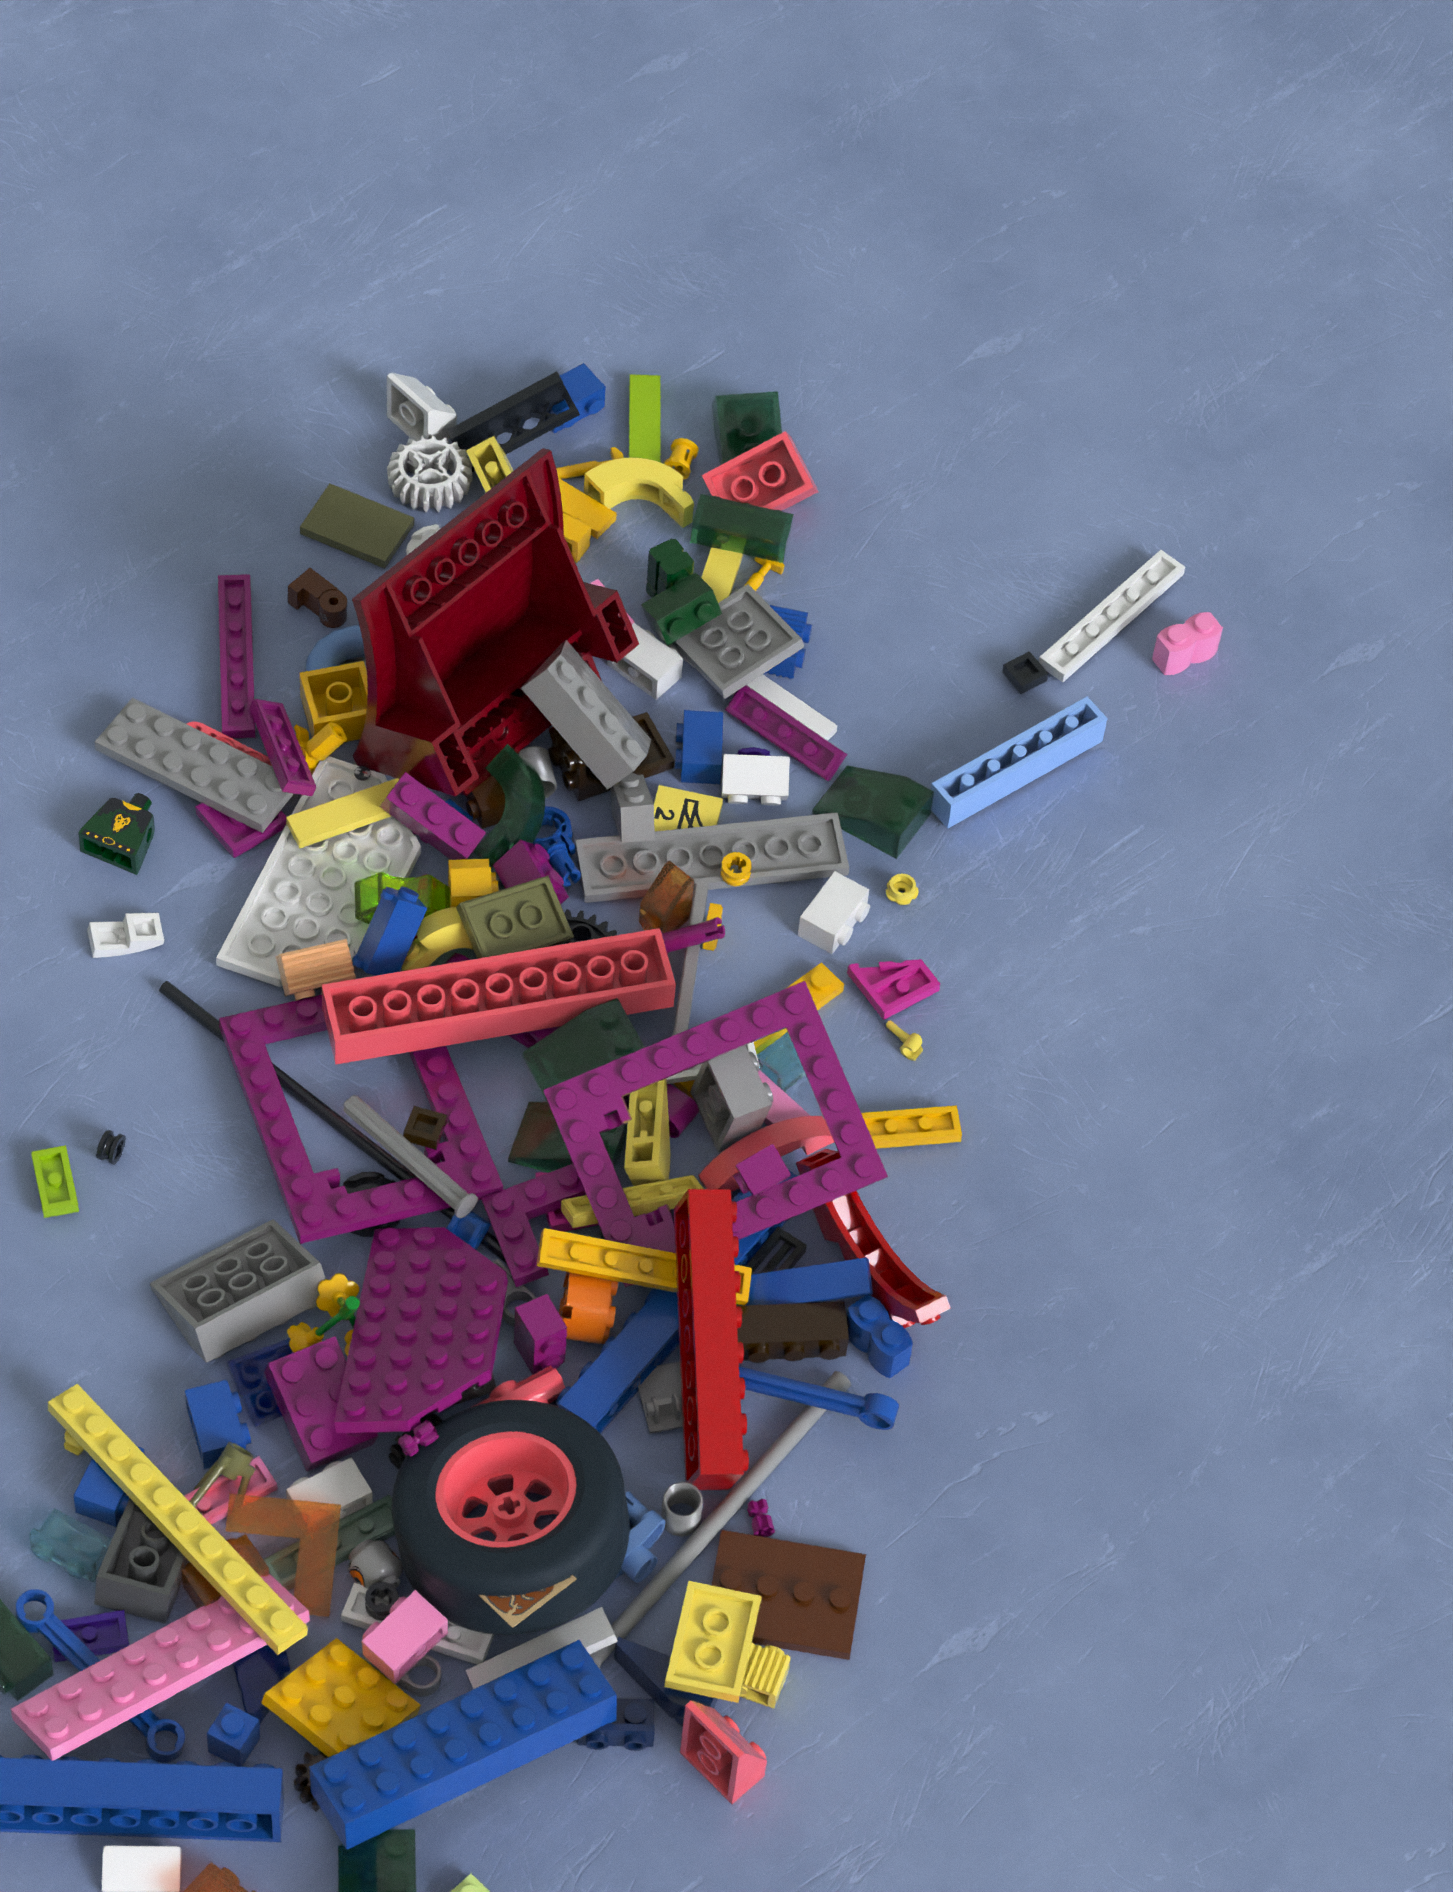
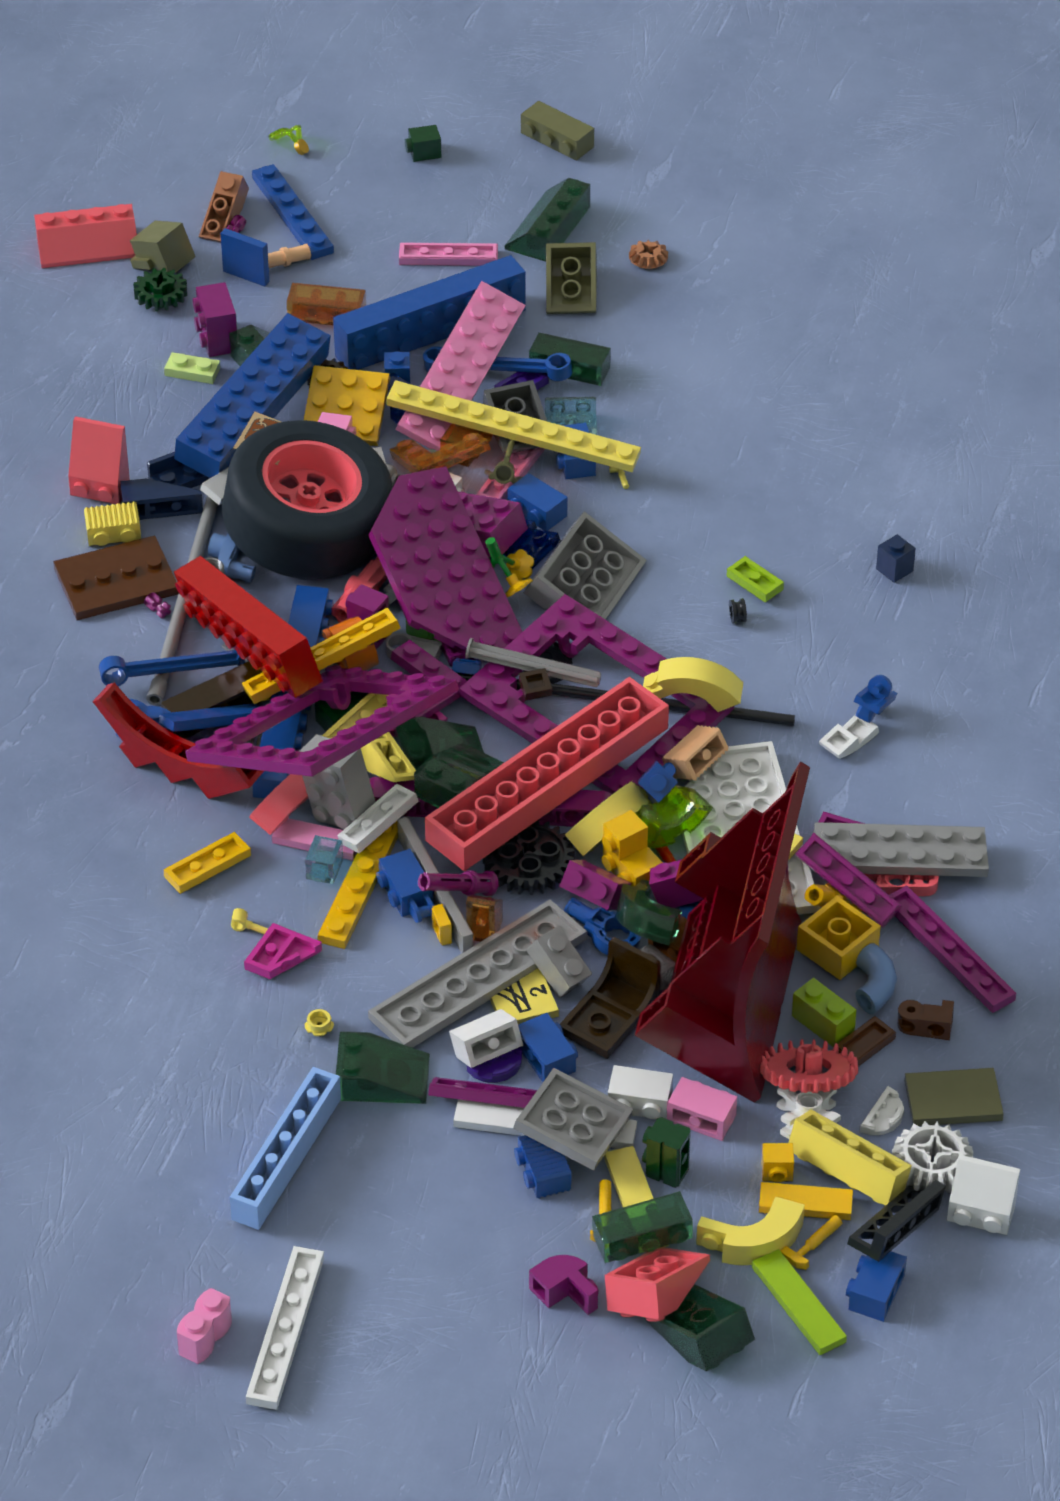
camera: 155 degrees right, 10 degrees down
(70, 938) = (874, 698): none -> blue hips
(119, 833) = (910, 788): dark green torso -> none
(271, 1016) = (696, 677): none -> light yellow arch
(423, 1434) = (387, 483): magenta piece -> none
(515, 919) = (575, 821): olive tile -> none
(587, 715) = (625, 962): light grey slope -> none
(680, 457) = (743, 1279): yellow bush -> none
(681, 609) = (633, 1114): dark green brick -> none
(713, 1641) = (138, 504): light yellow plate -> none
(717, 983) = (400, 878): none -> blue brick
(741, 861) = (450, 967): yellow bush -> none
(761, 1171) = (271, 704): magenta brick -> none
(834, 913) = (357, 976): white brick -> none
(839, 534) = (564, 1277): none -> magenta brick
(1025, 672) = (329, 1238): black plate -> none

